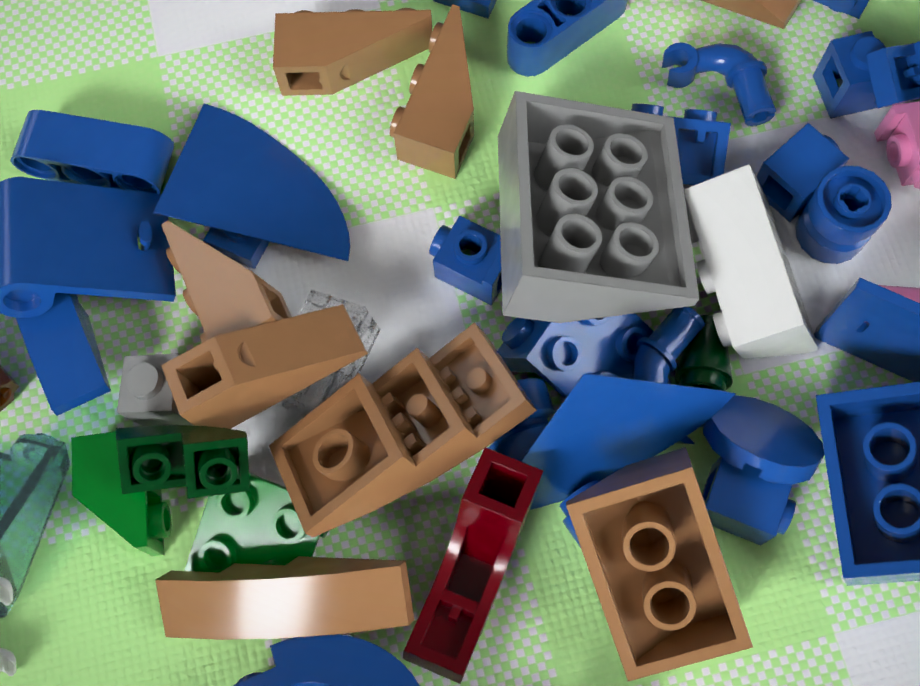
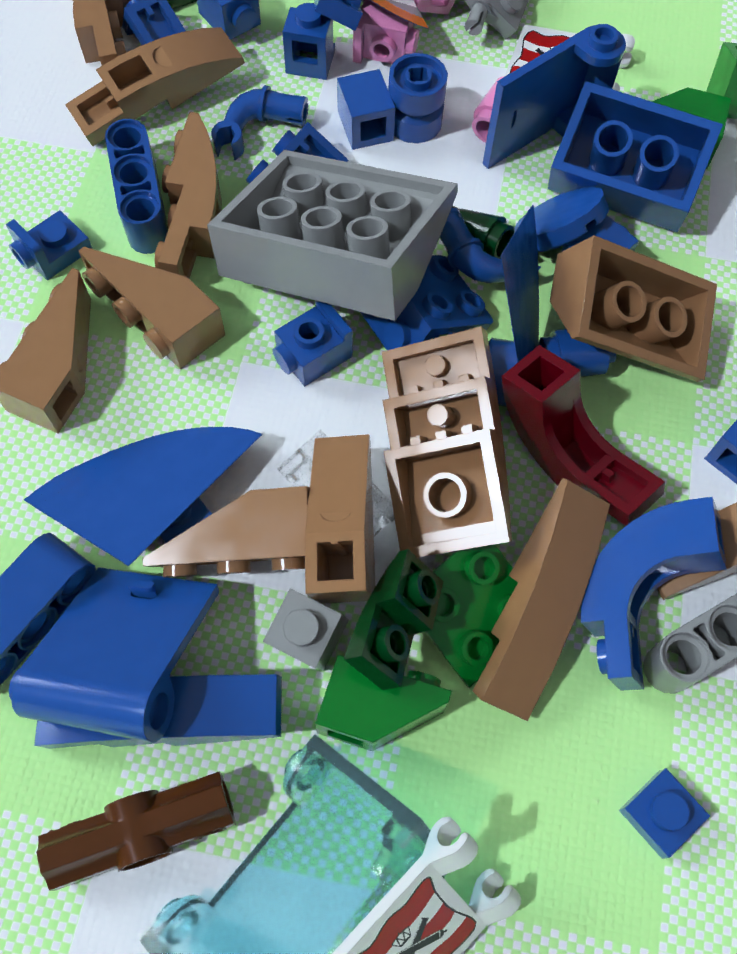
camera: 70 degrees left, 5 degrees down
(597, 68) = (193, 198): none -> medium nougat slope
(747, 268) = (434, 152): white slope -> none

